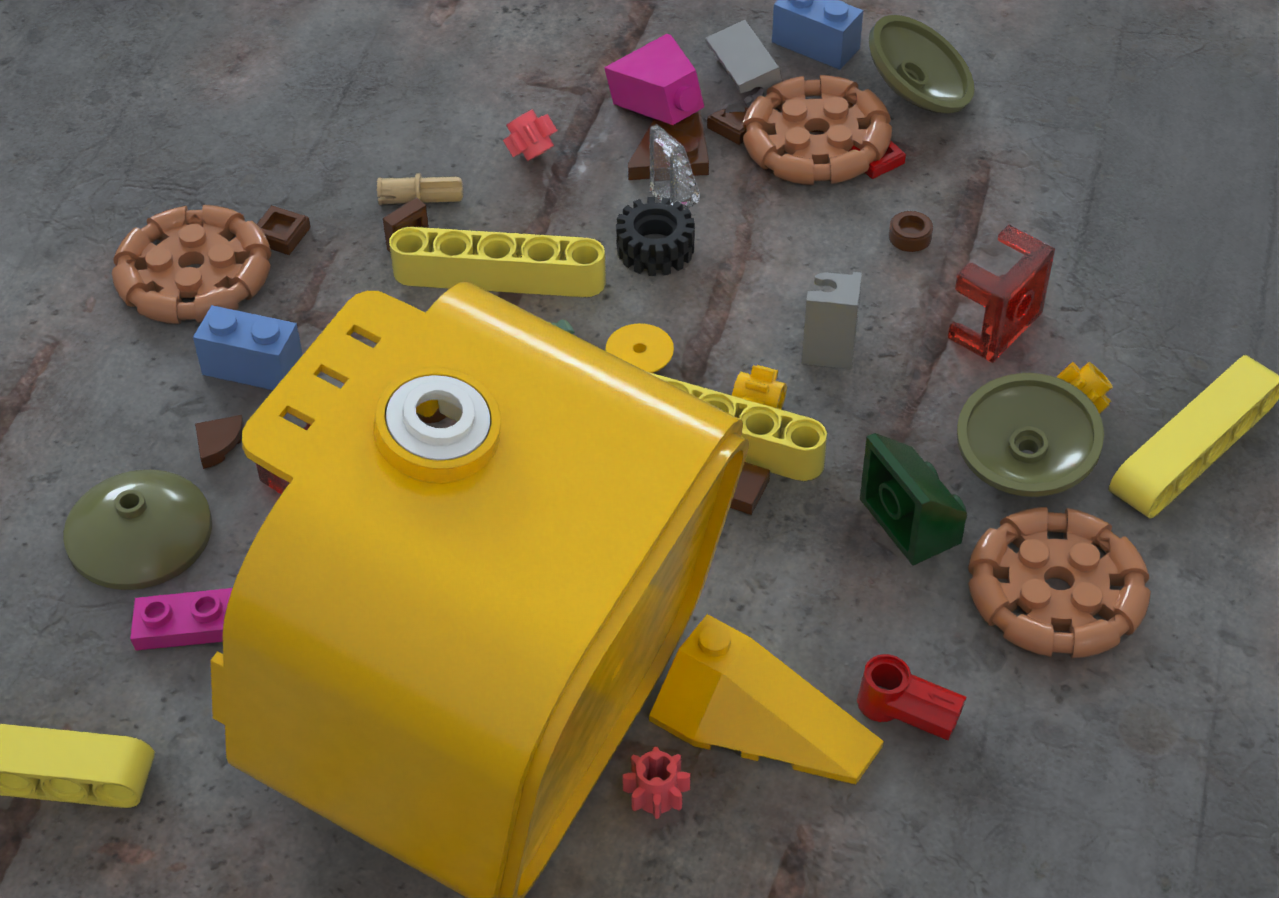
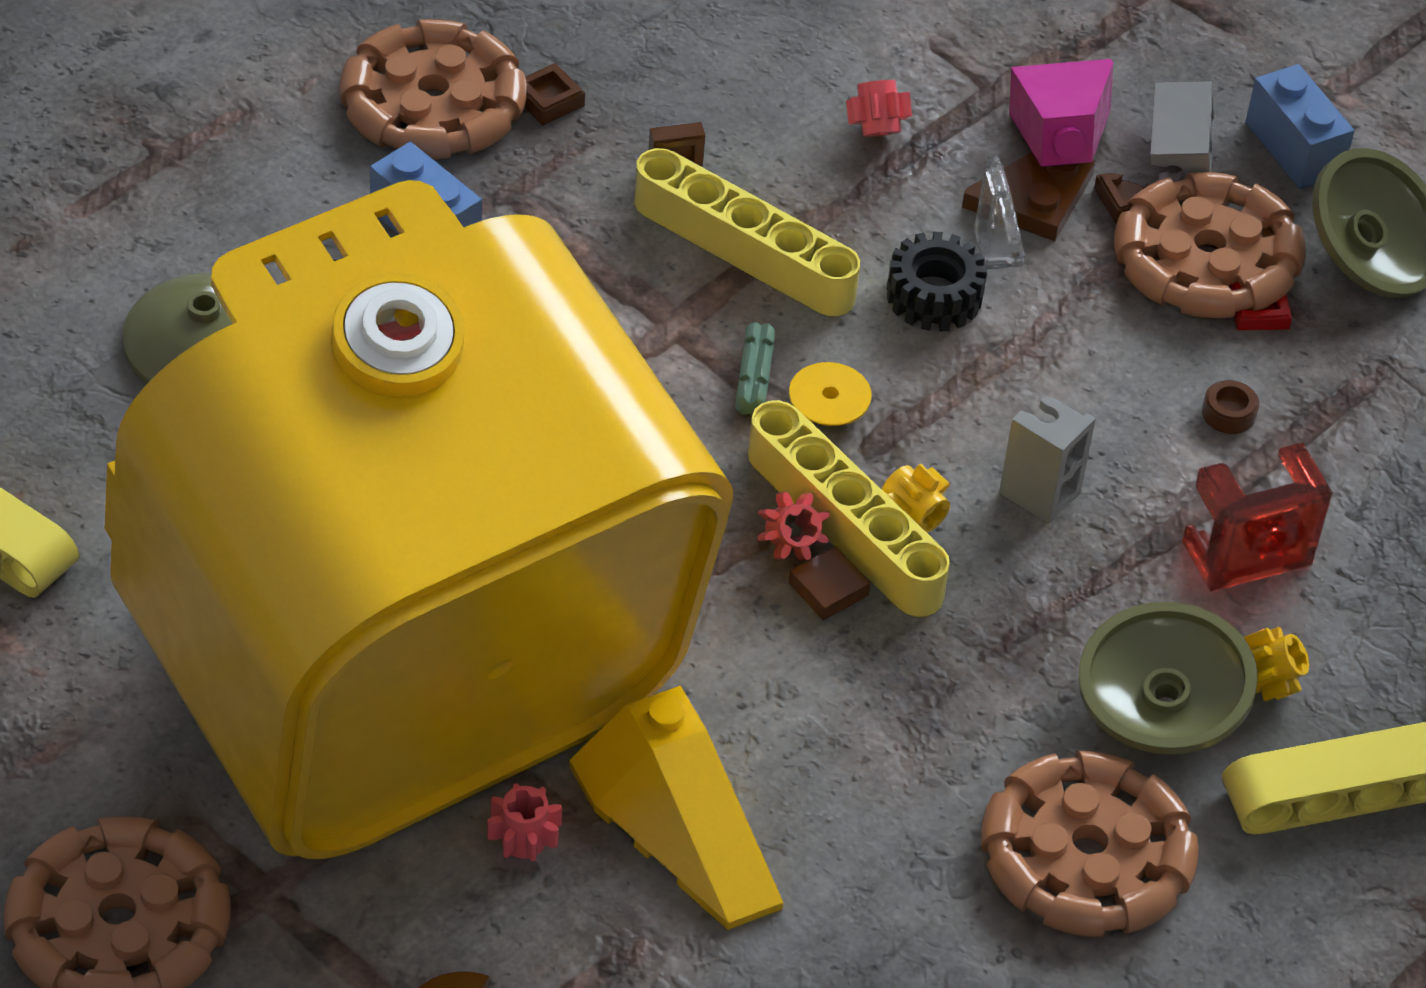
camera: 25 degrees right, 0 degrees up
(425, 189) = (720, 115): tan axle -> none
(908, 697) = (836, 875): red piece -> none
(910, 500) = (991, 681): dark green slope -> none

